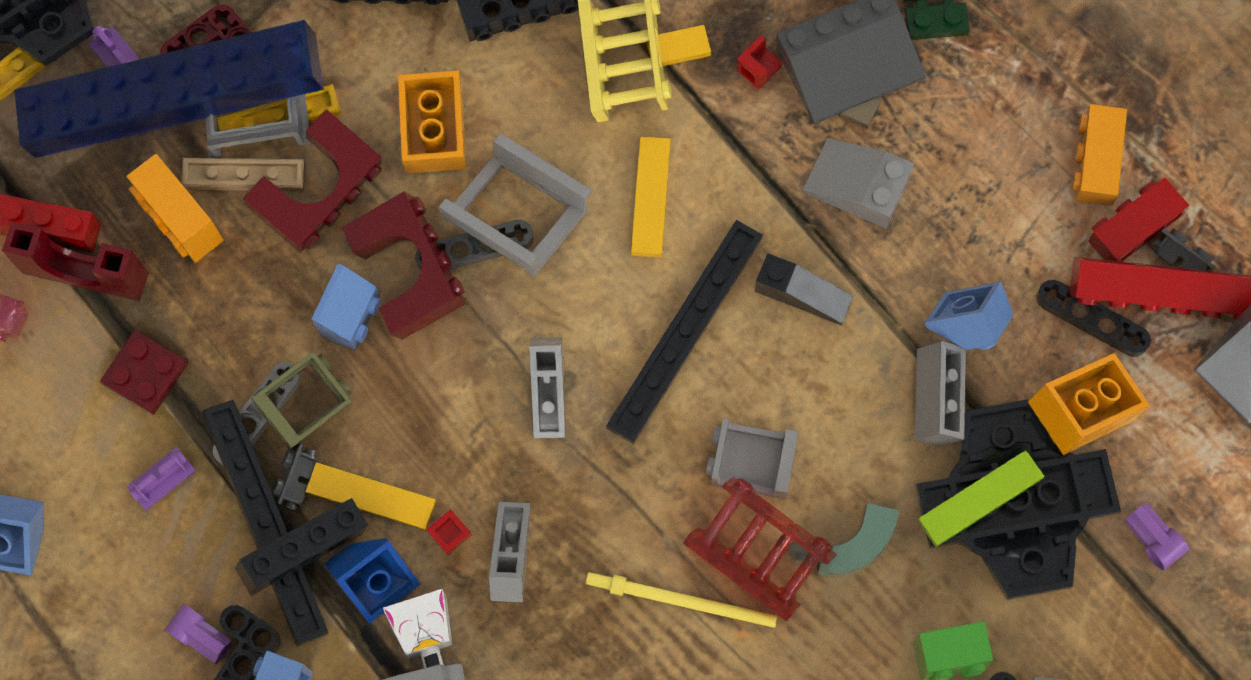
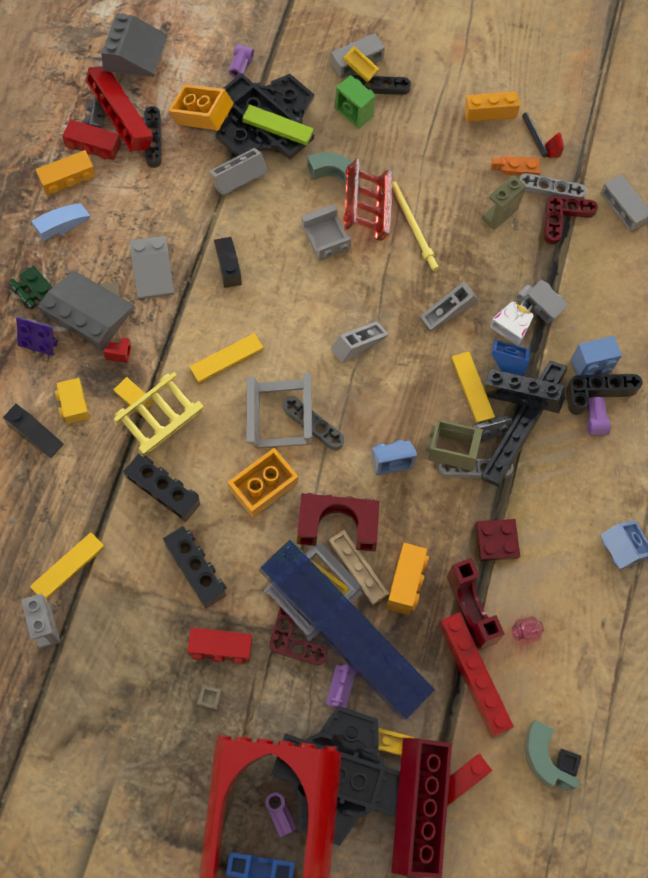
camera: 135 degrees left, 5 degrees down
(161, 478) = (542, 491): medium lavender hinge -> none
(436, 289) = (330, 460): dark red arch -> none
(449, 532) = (462, 339): red plate -> none
(684, 332) = (285, 298): black plate -> none
(972, 316) = (191, 177): medium blue slope -> none
(1020, 103) = (60, 220): none -> light blue slope

